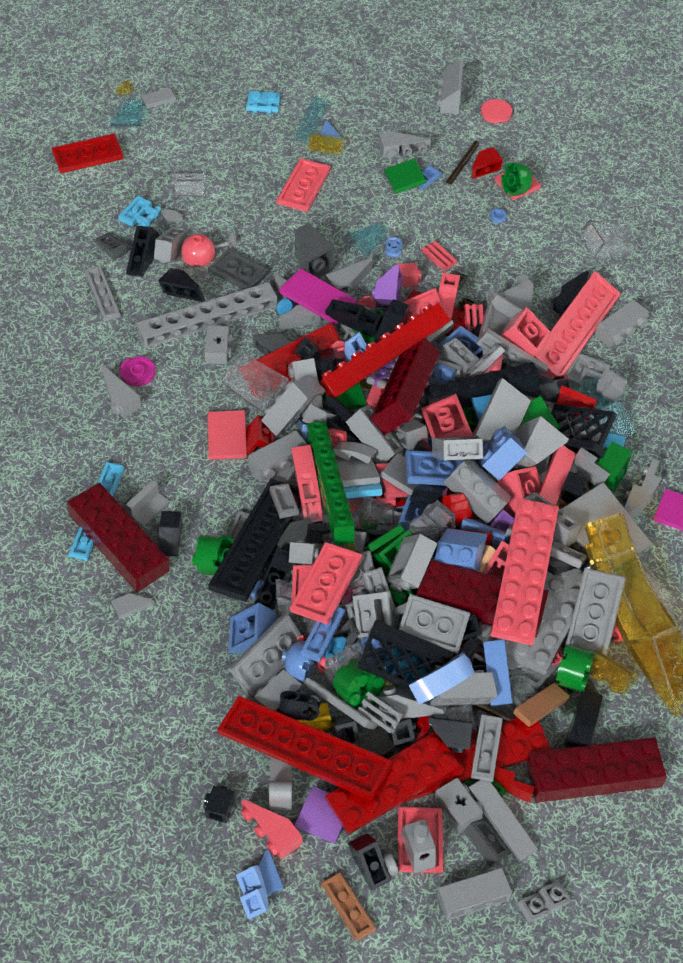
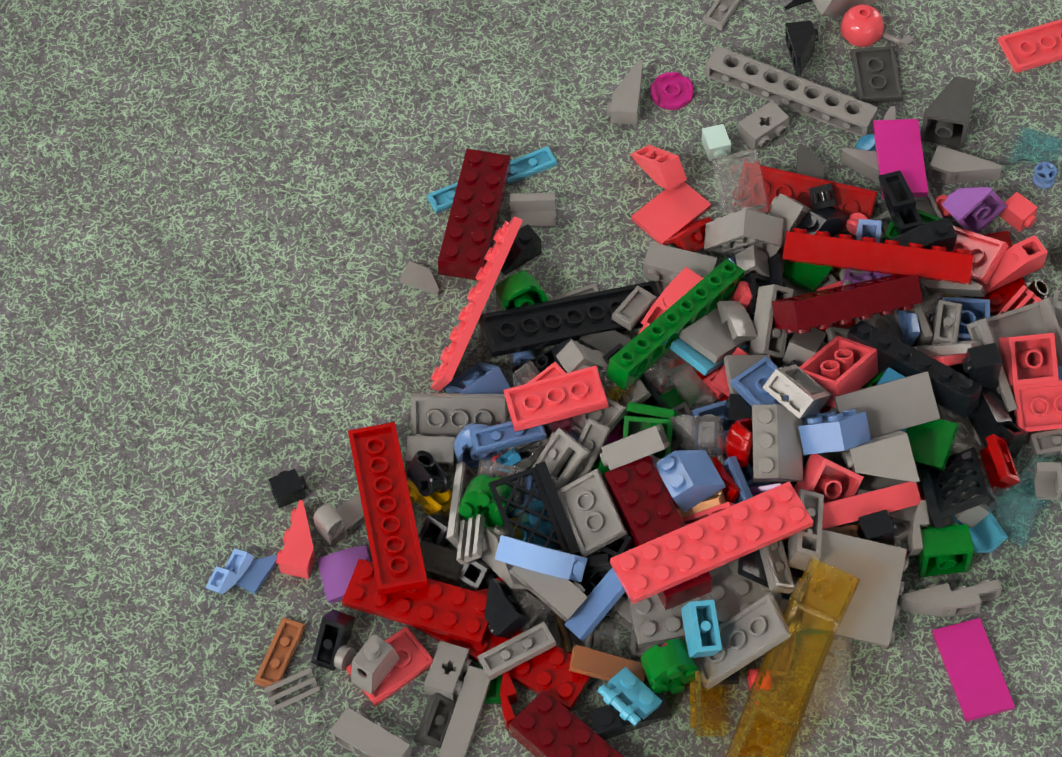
camera: 55 degrees right, 5 degrees up
(191, 413) = (661, 166): none -> coral slope
(197, 582) = (478, 297): none -> coral plate
(203, 375) = (716, 141): none -> light aqua brick
(389, 919) = (315, 688): none -> light grey tile
(520, 349) = (983, 364): none -> black slope
(575, 624) = (701, 628): none -> medium azure brick
(578, 705) = (633, 693): none -> medium azure plate

